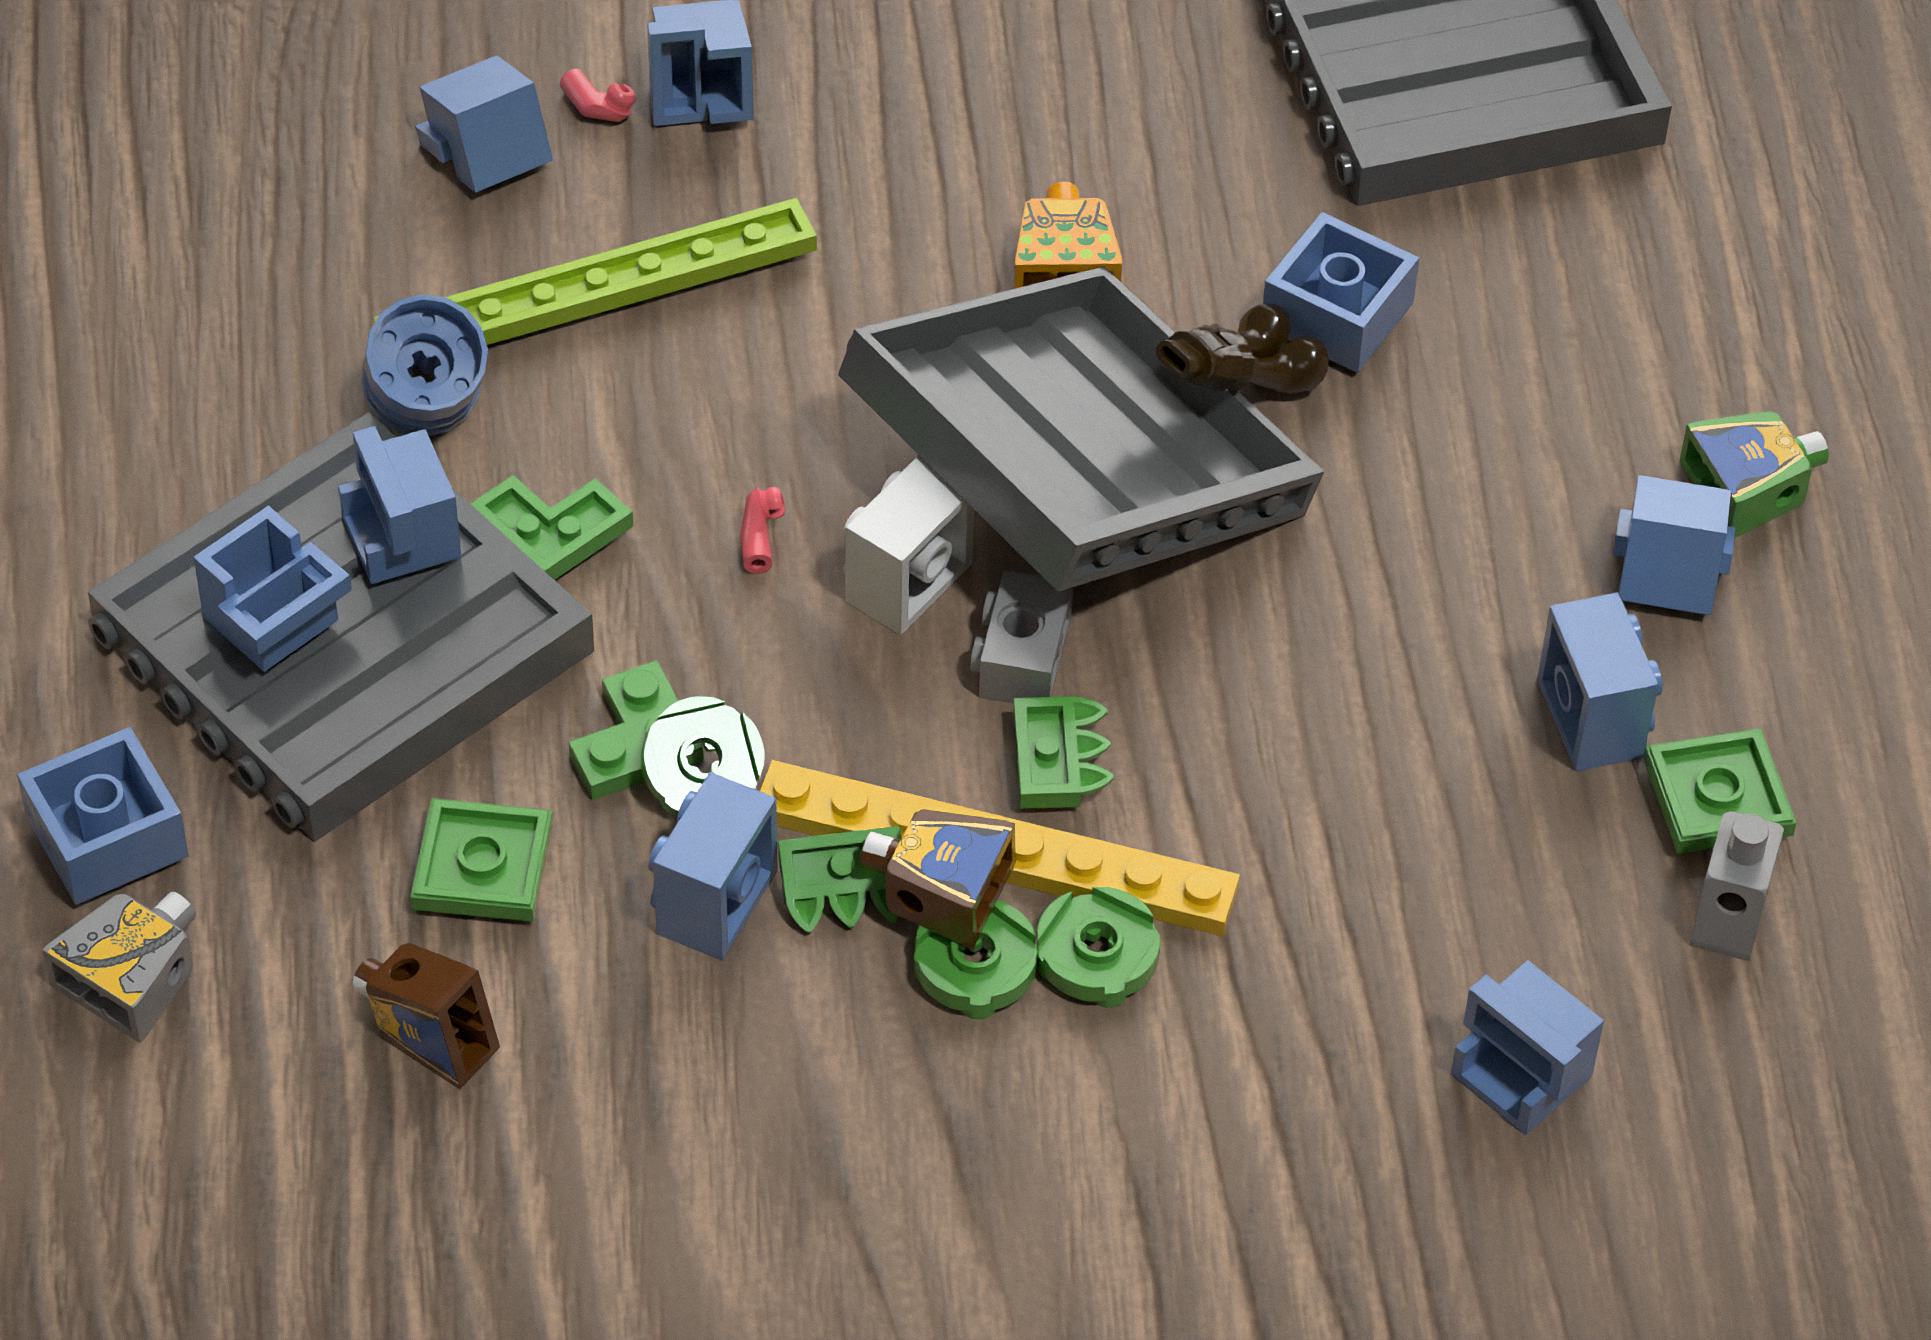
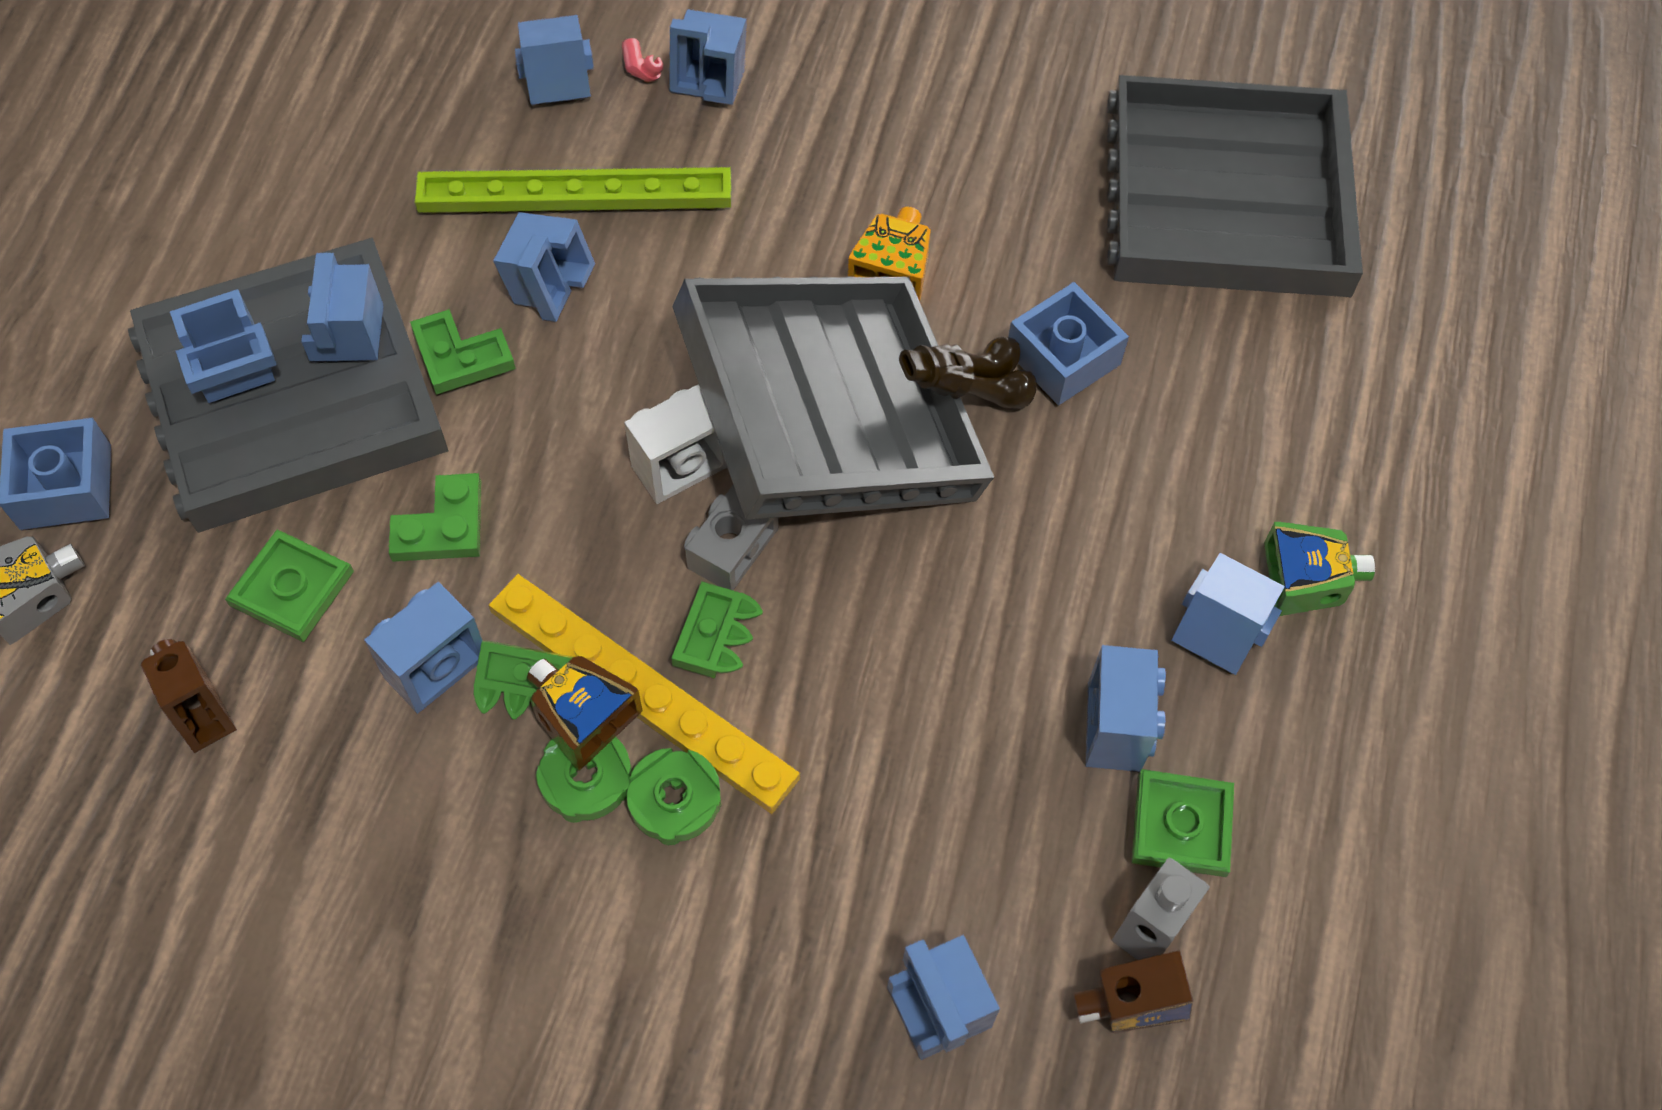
camera: 20 degrees right, 10 degrees up
(437, 339) = (402, 202): medium blue wheel -> none
(613, 377) = (542, 261): none -> medium blue plate
(692, 722) = (449, 539): plate -> none
(755, 530) = (597, 386): coral arm -> none
(1753, 972) = (1156, 983): none -> reddish brown torso

